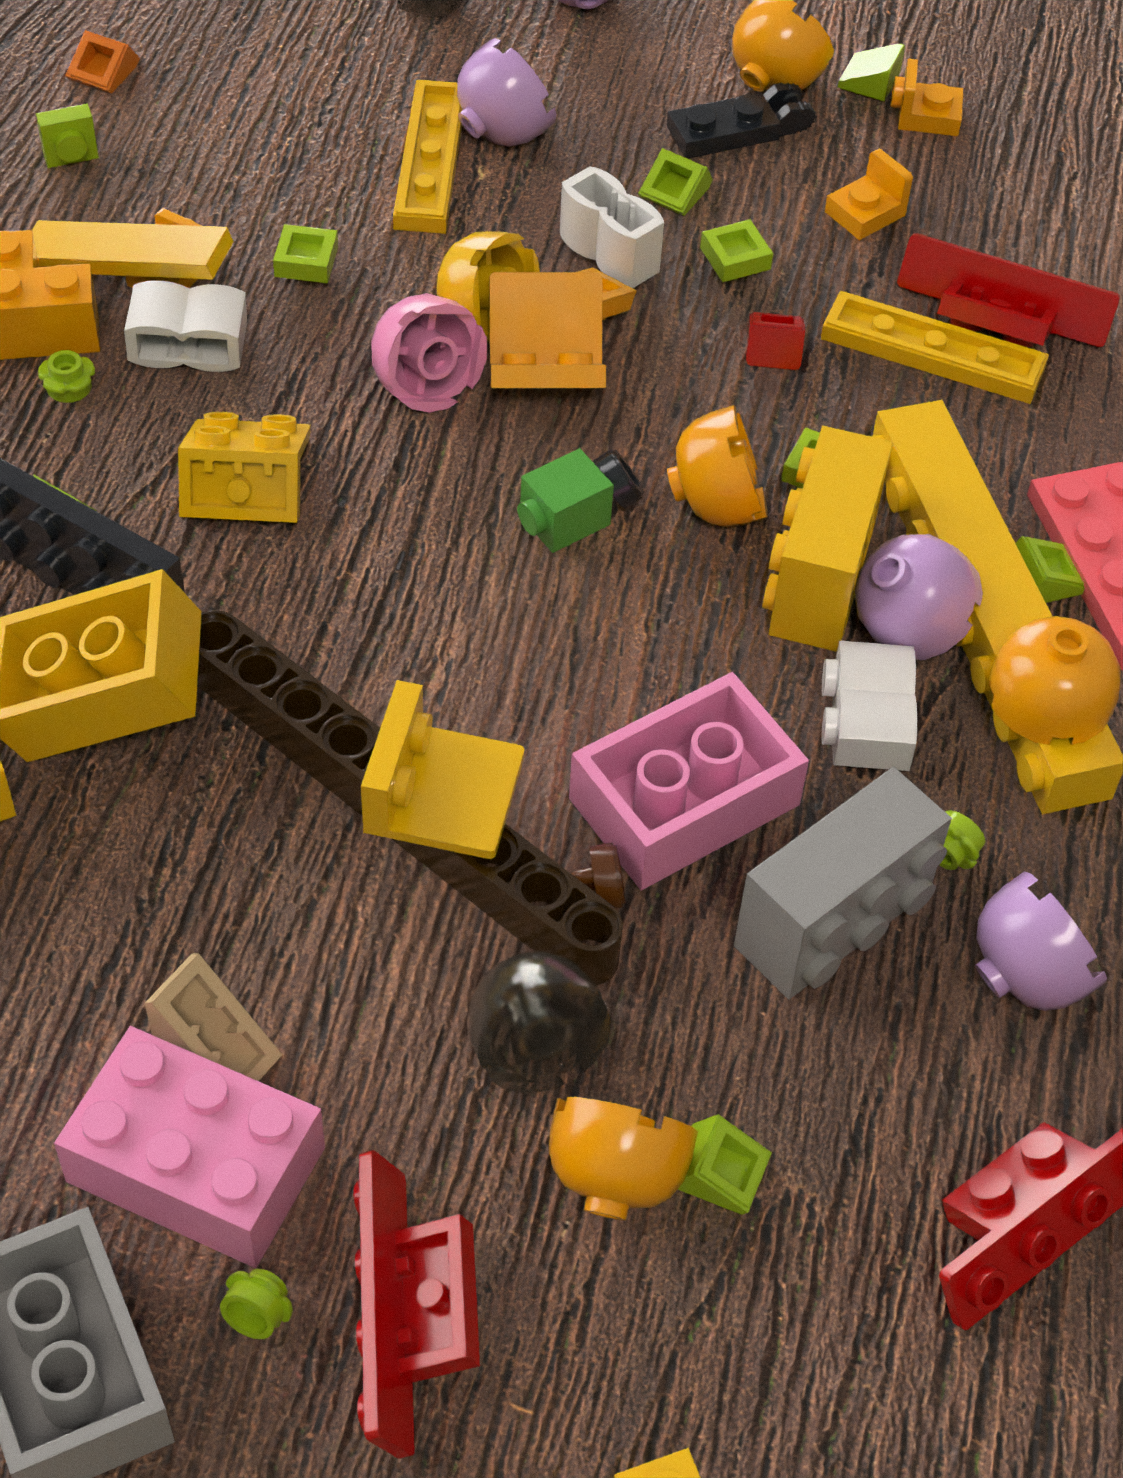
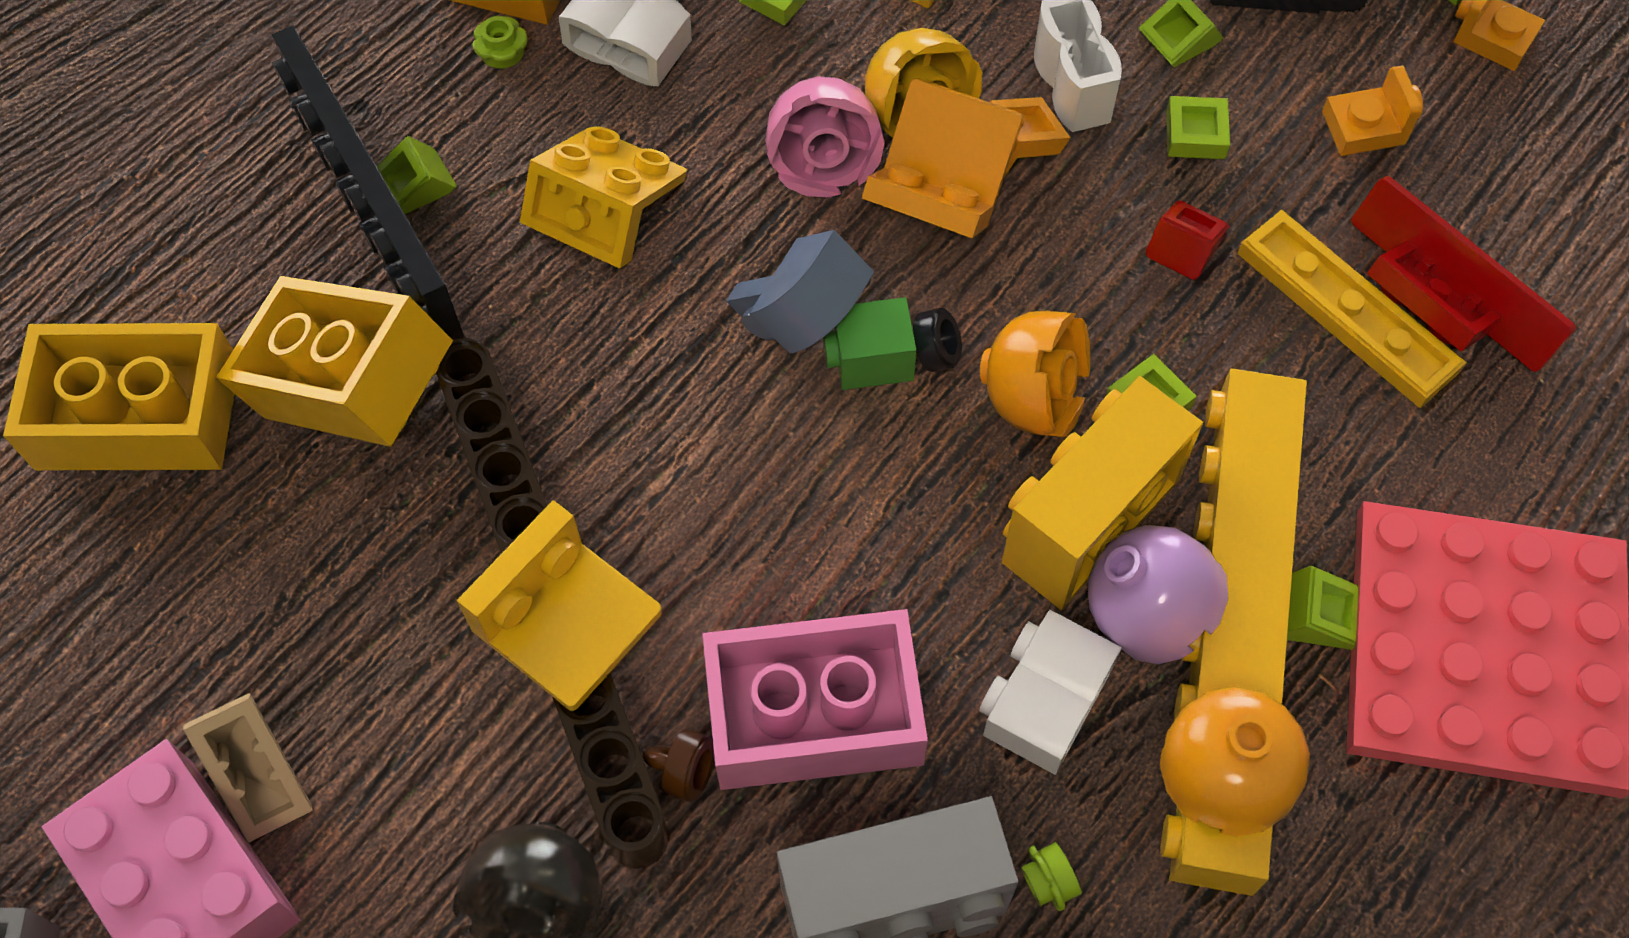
camera: 30 degrees right, 10 degrees up
(497, 473) = (806, 293): none -> sand blue brick

